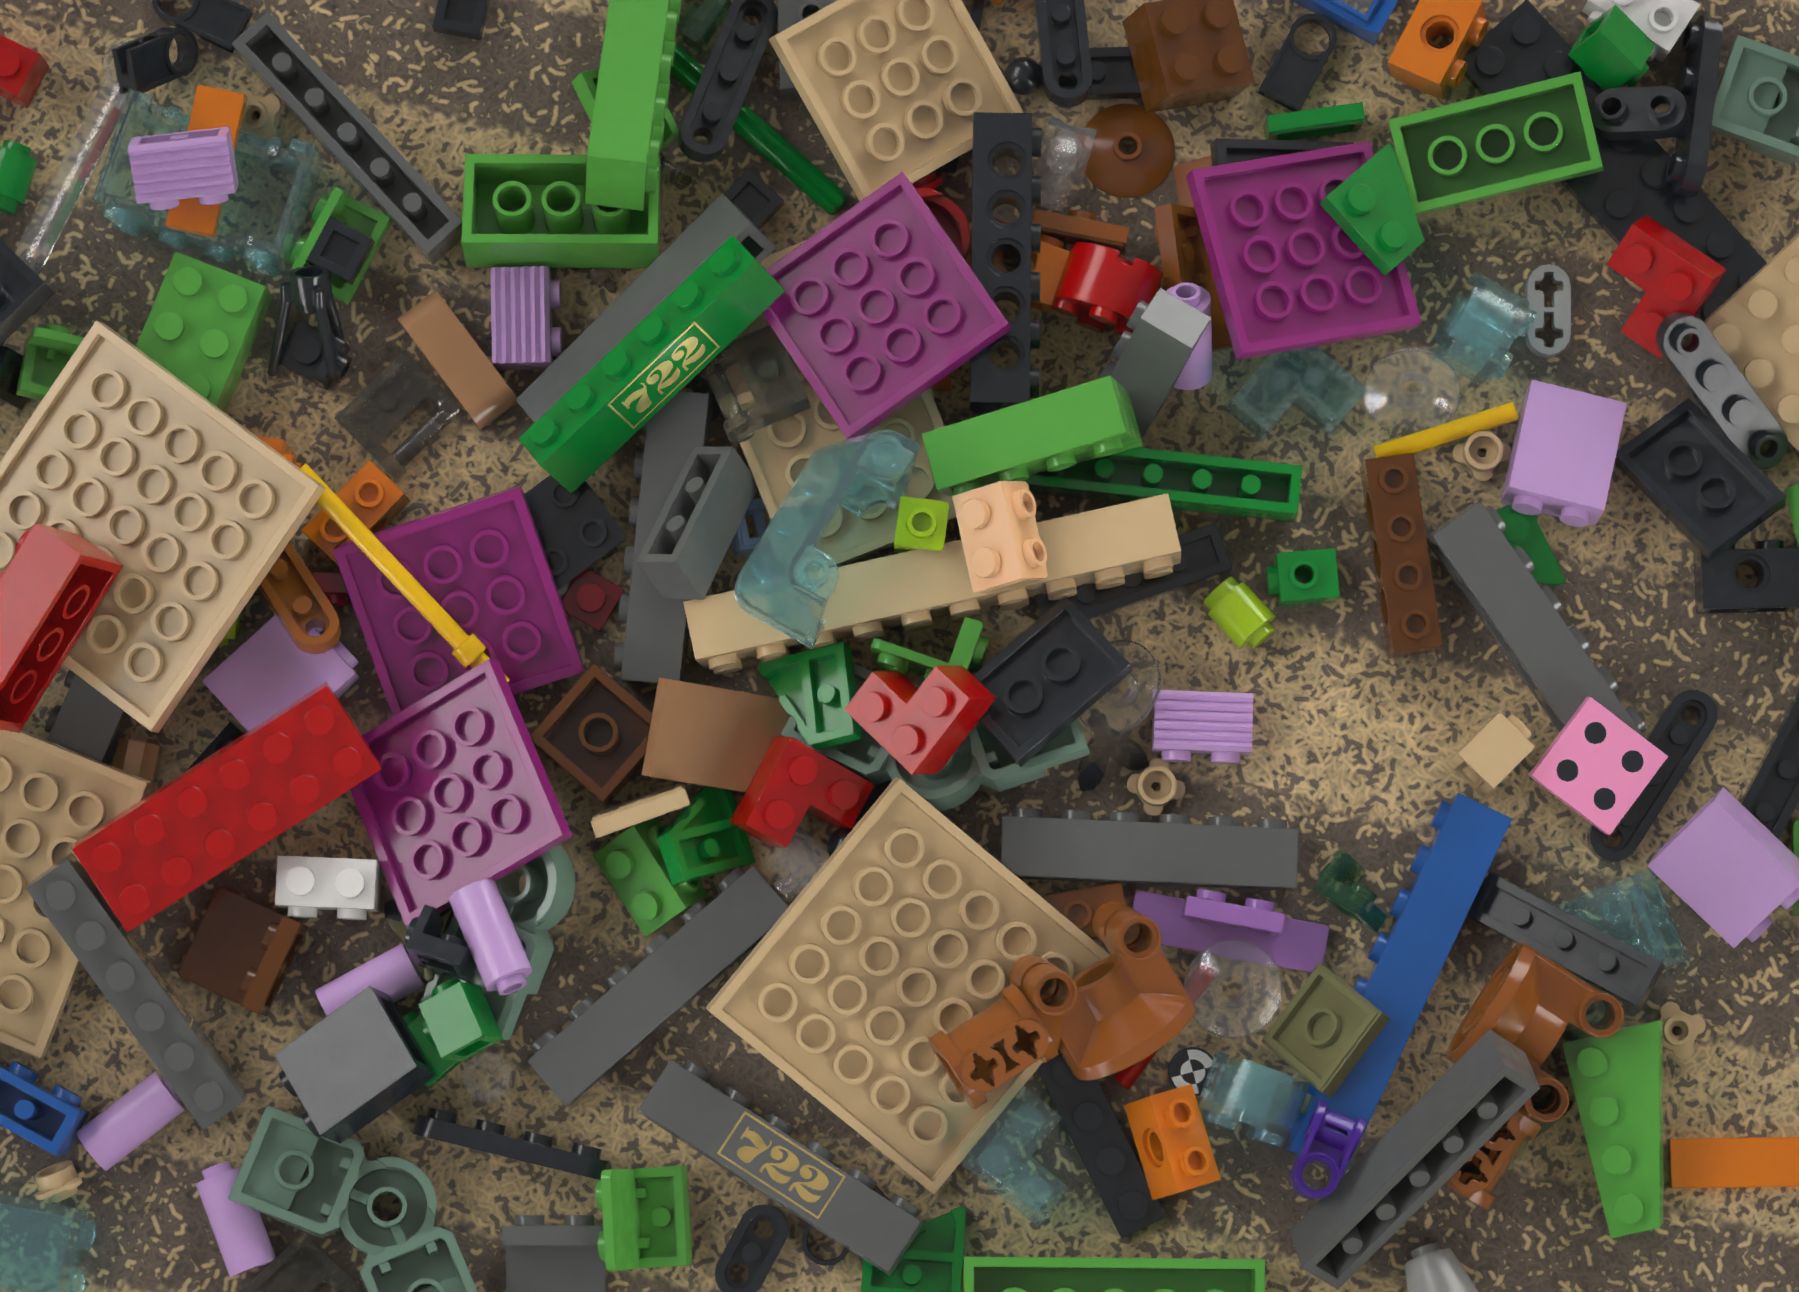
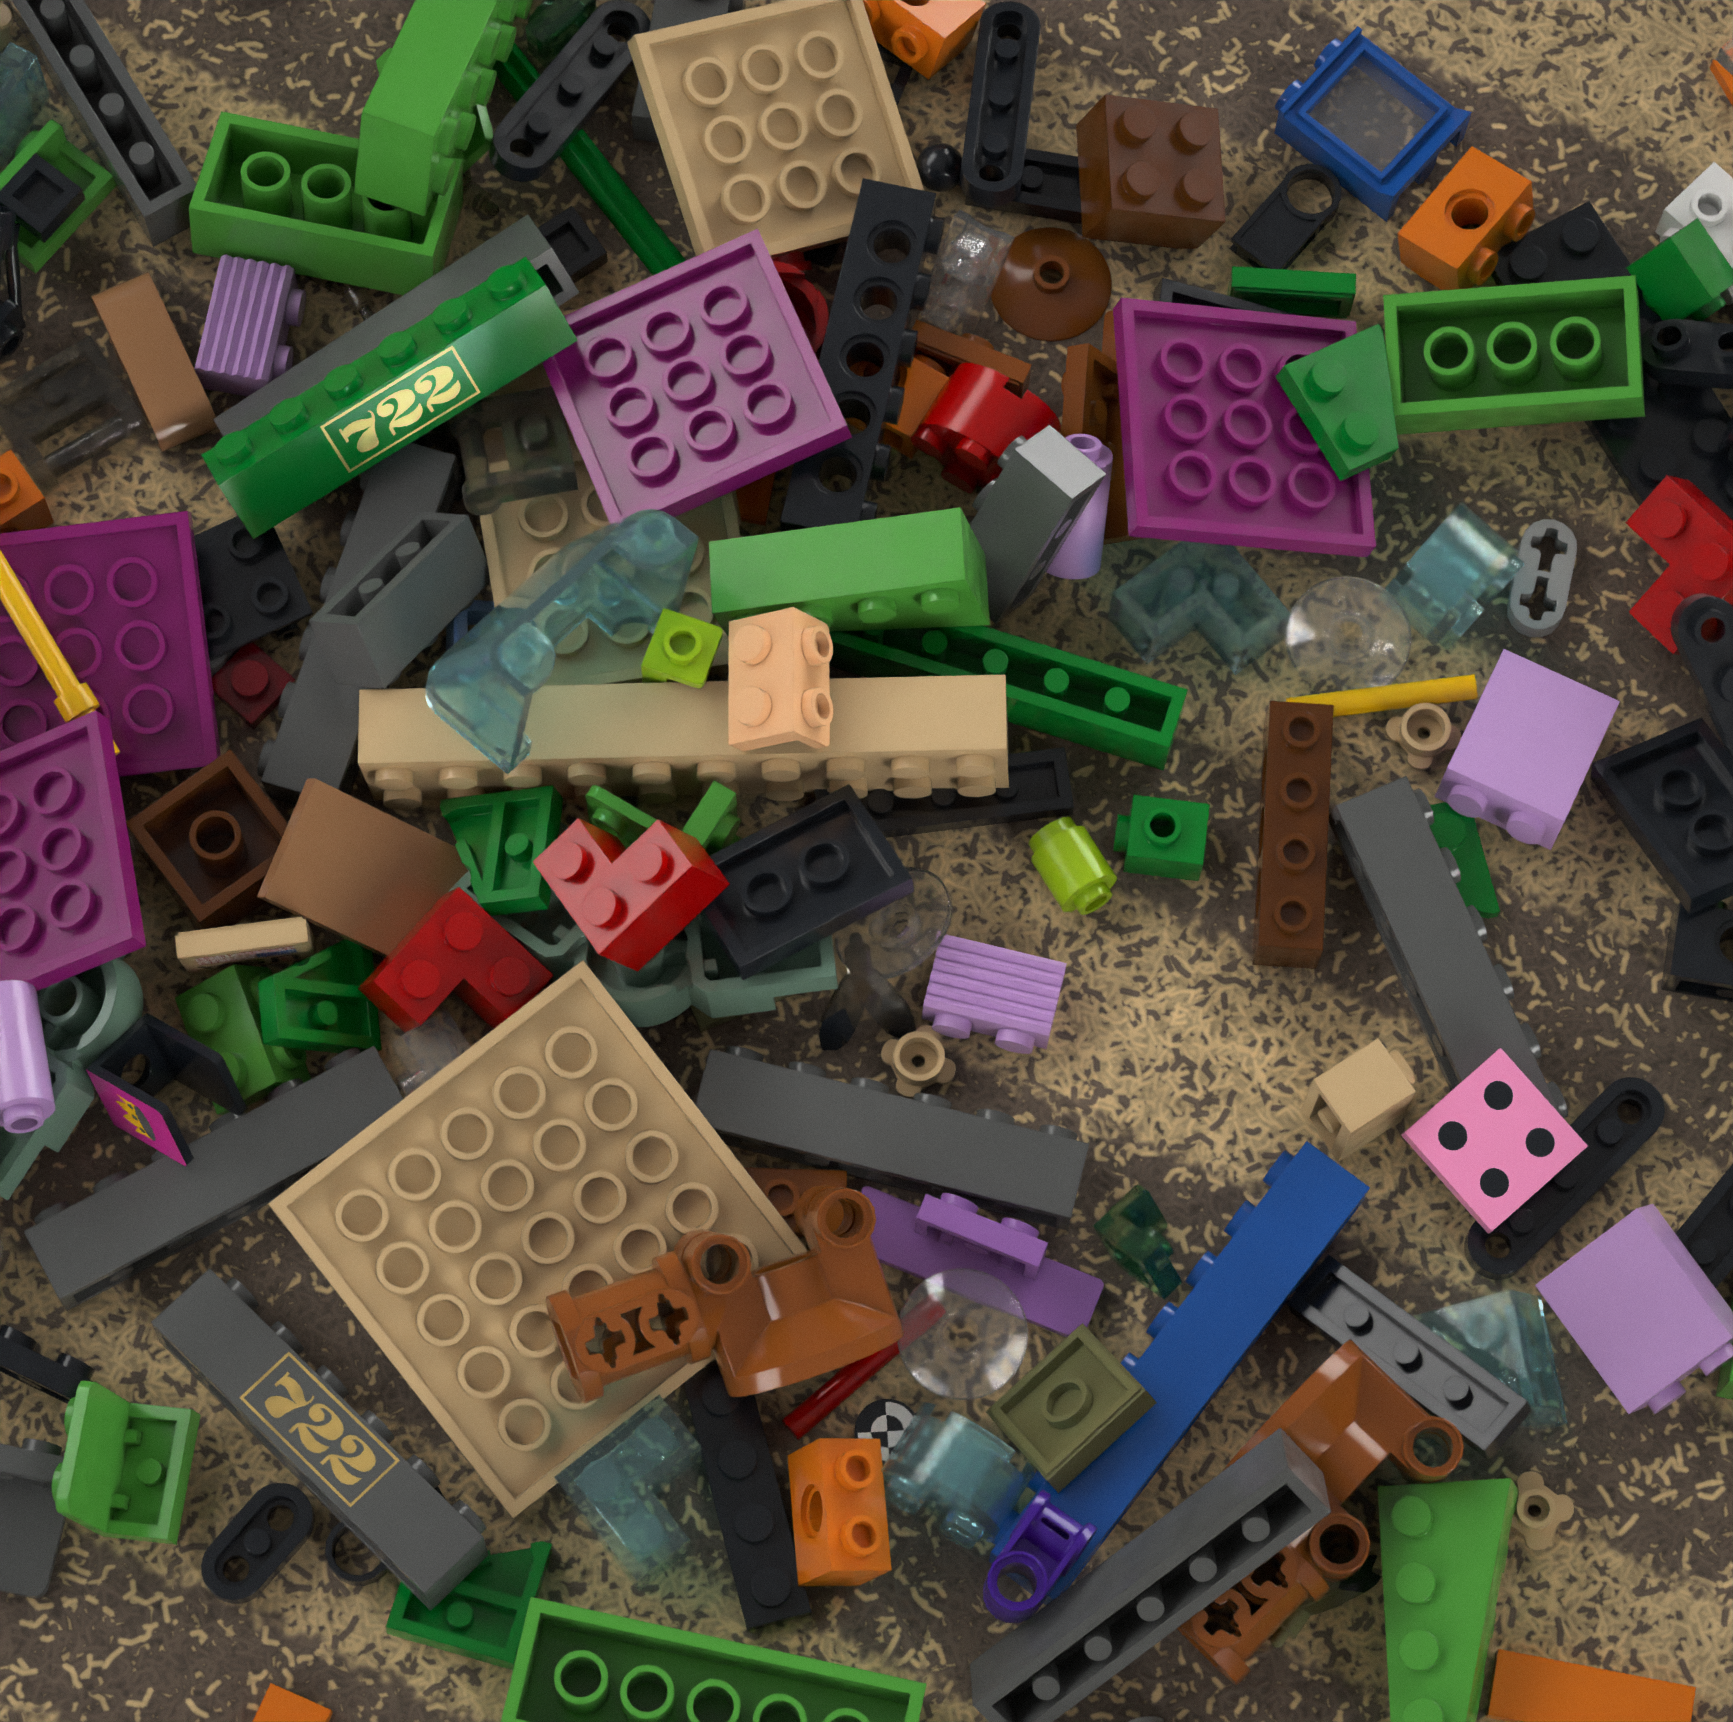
camera: 10 degrees right, 10 degrees down
(597, 904) = (167, 1057): none -> black piece

